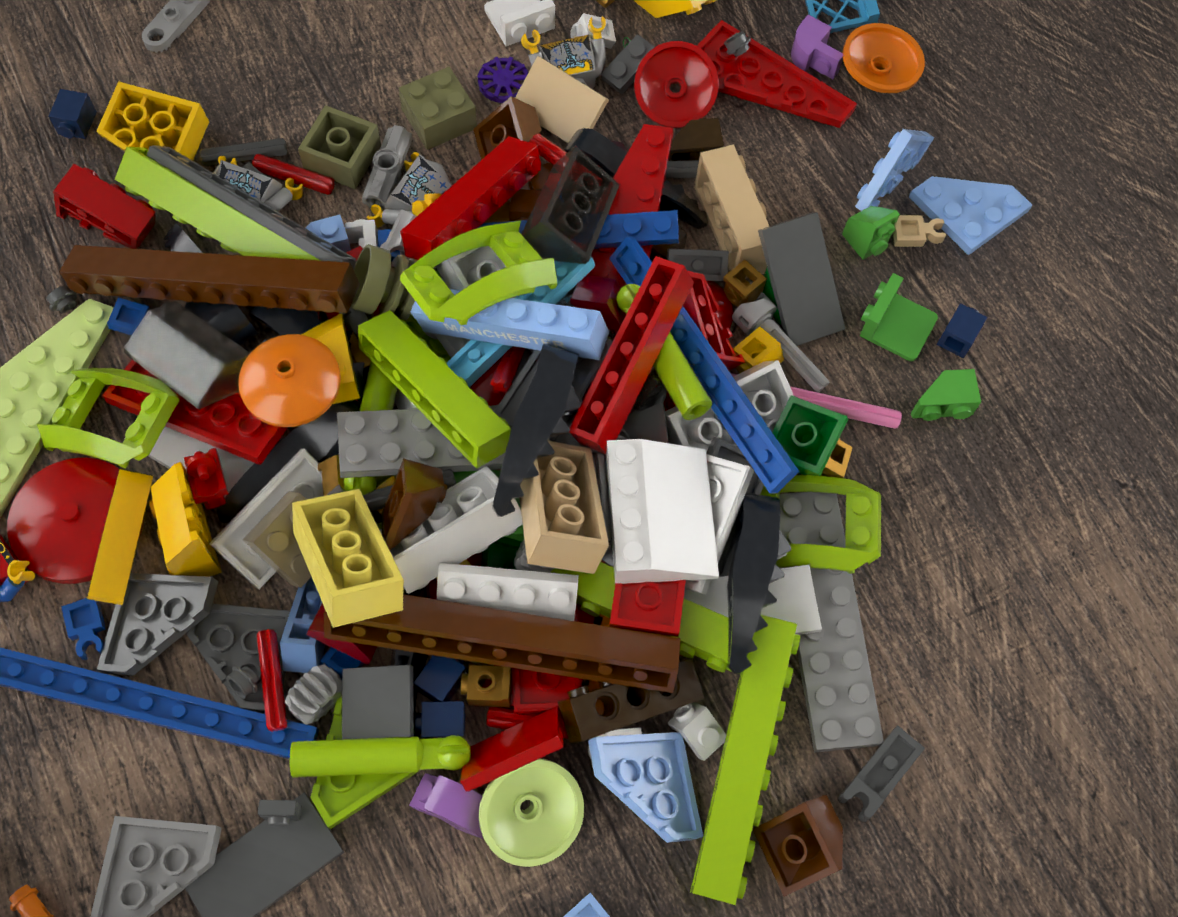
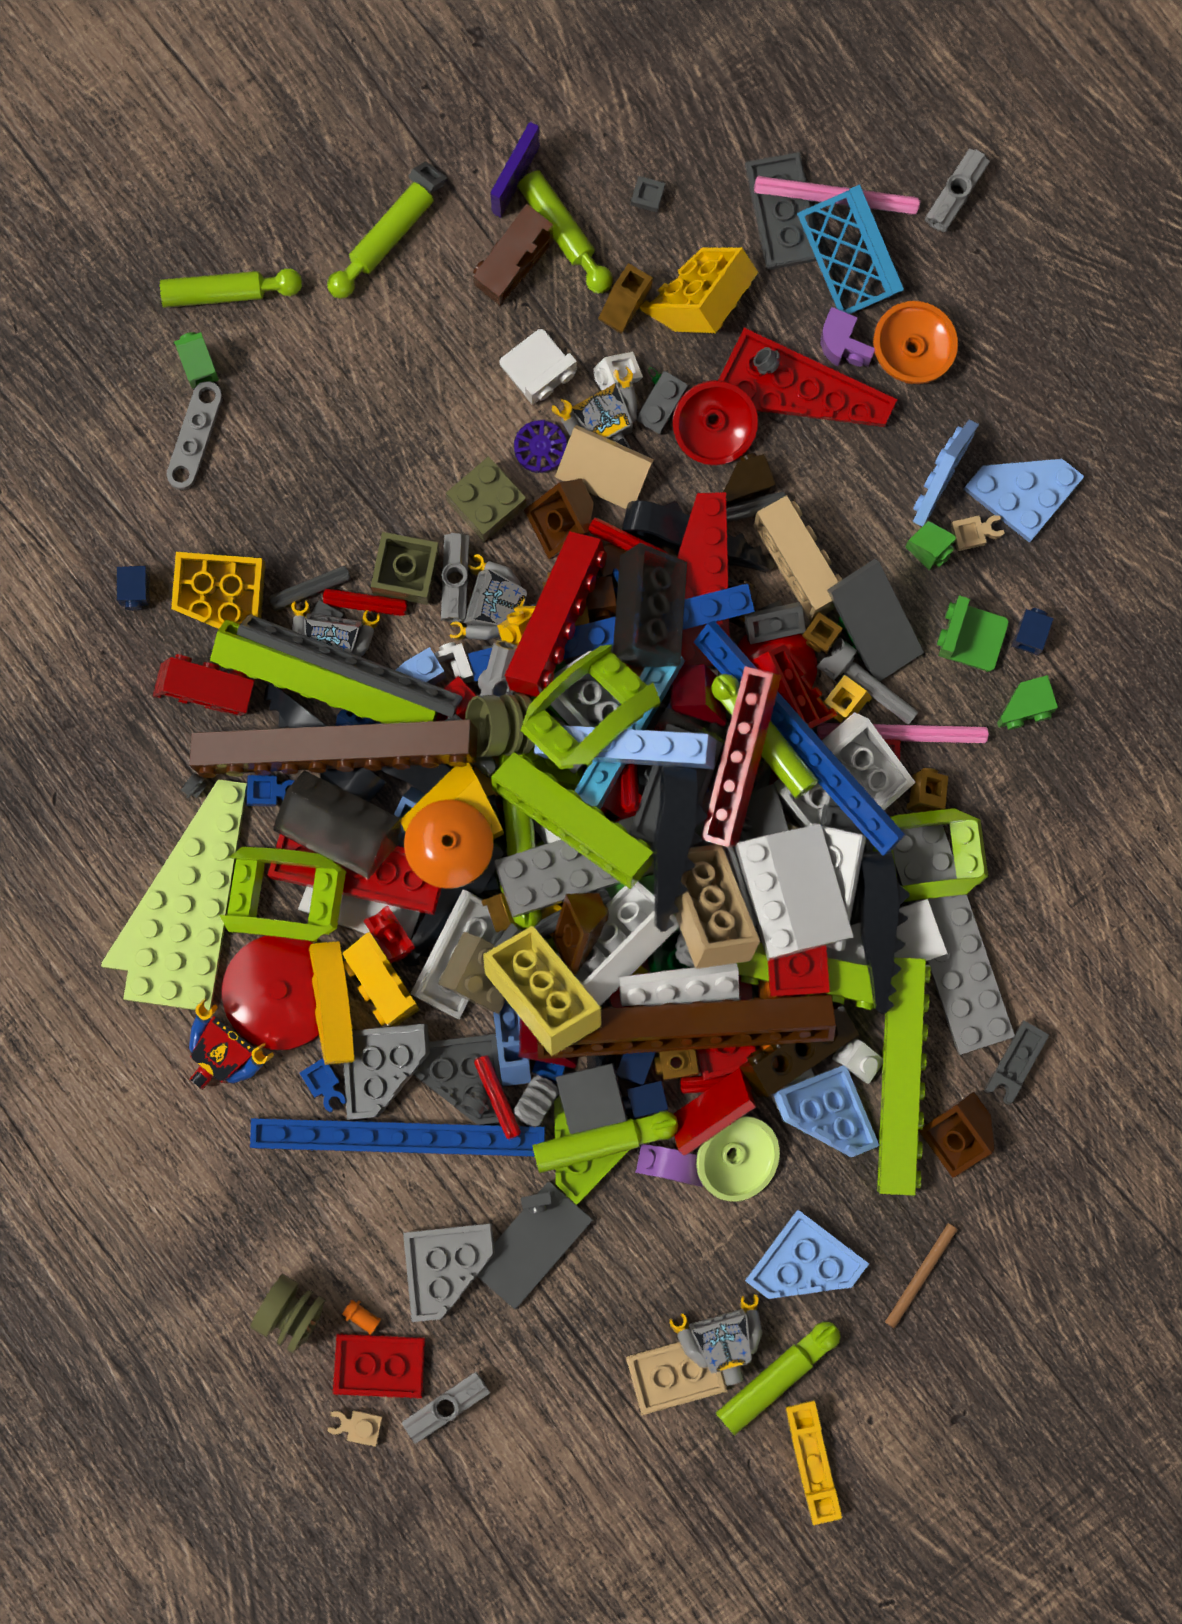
camera: 10 degrees left, 15 degrees up
(808, 434) = (905, 782): green slope -> none

